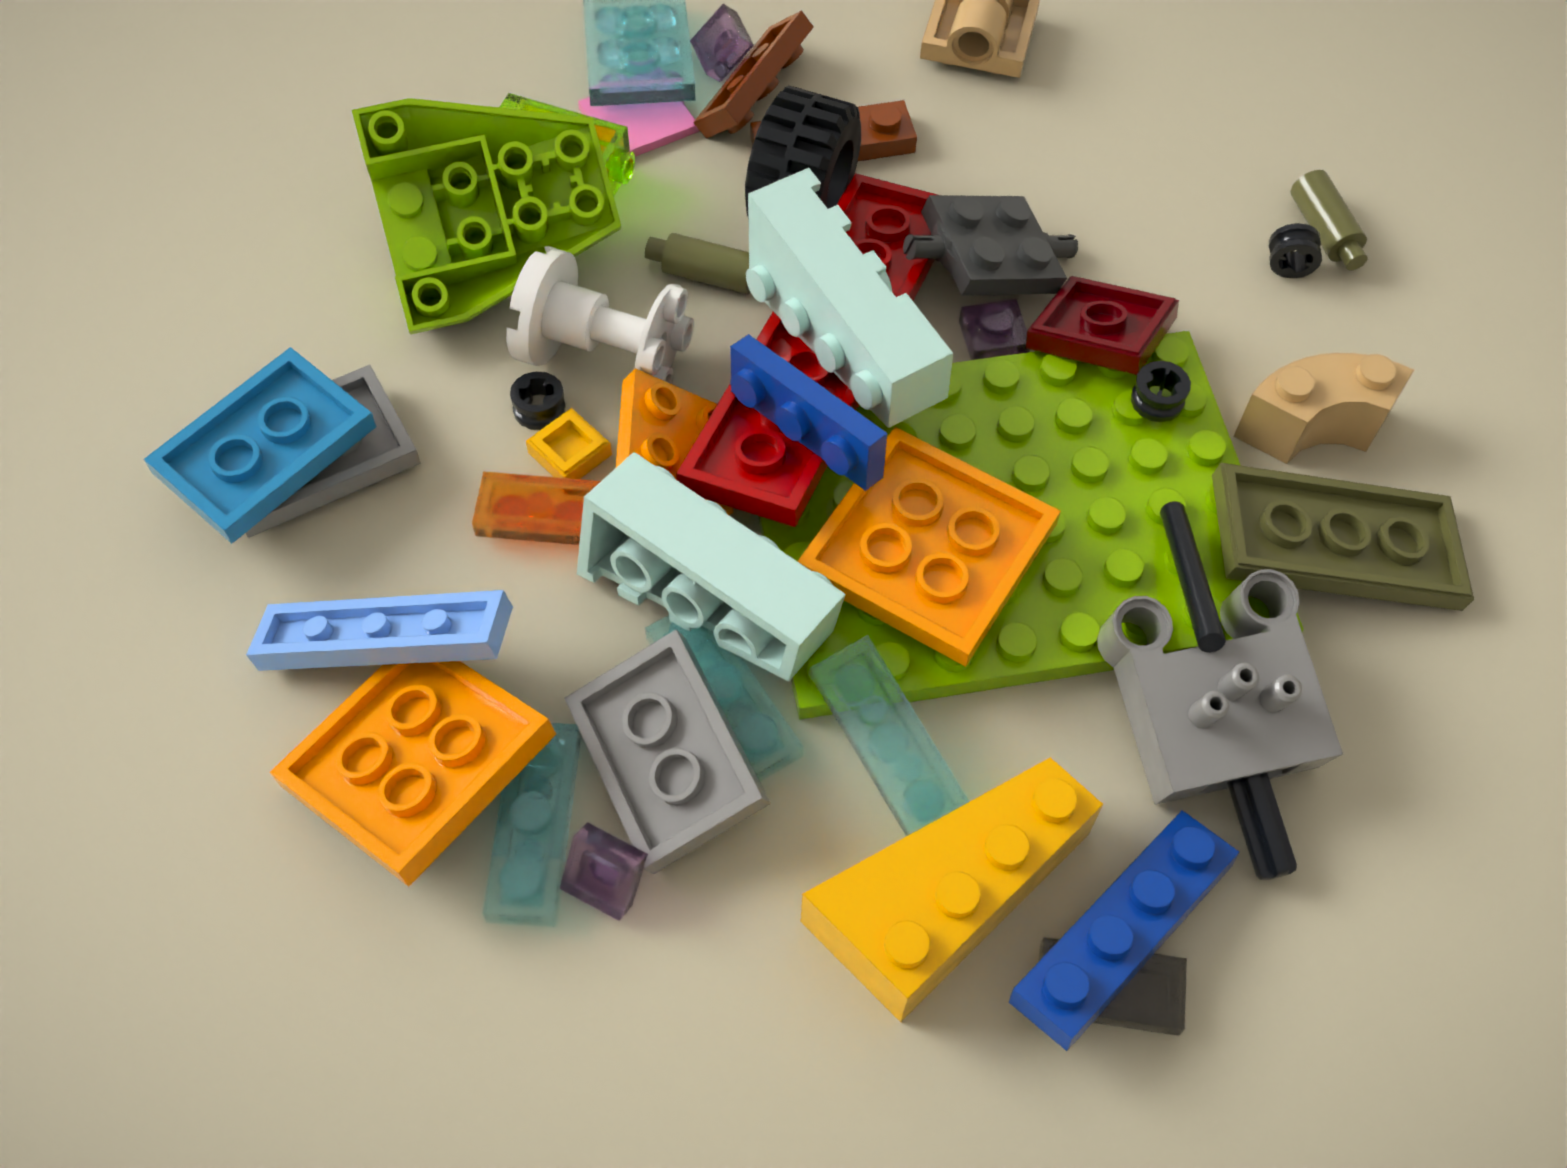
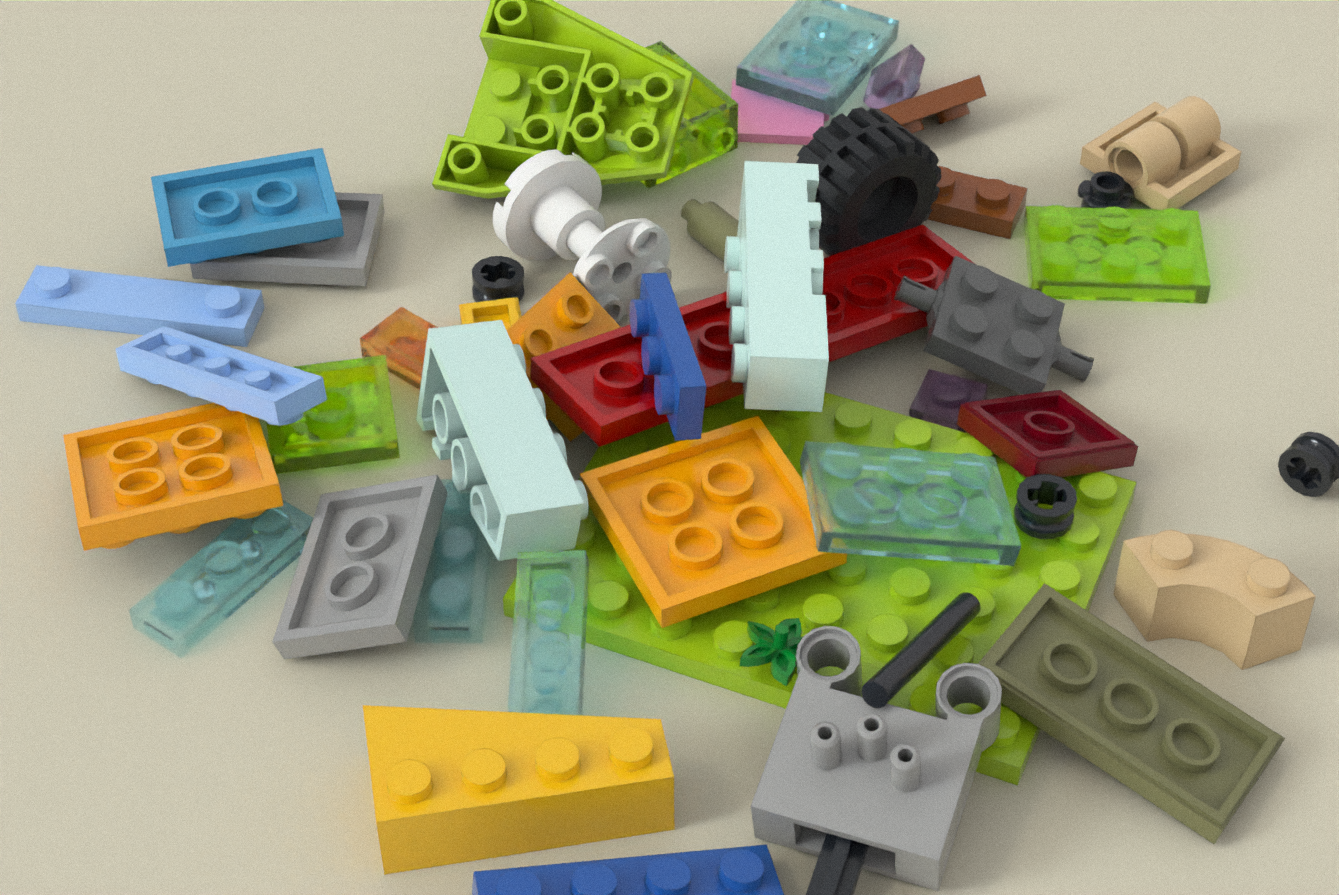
camera: 35 degrees right, 15 degrees down
(215, 593) = (139, 304): none -> light blue plate
(543, 604) = (345, 429): none -> clear neon green plate
(603, 871) = (240, 626): clear purple plate -> none
(964, 80) = (1105, 191): none -> black plate
(1009, 130) = (1116, 254): none -> clear neon green plate
(1069, 632) = (773, 646): none -> green plant
(1071, 447) = (908, 504): none -> clear light blue plate

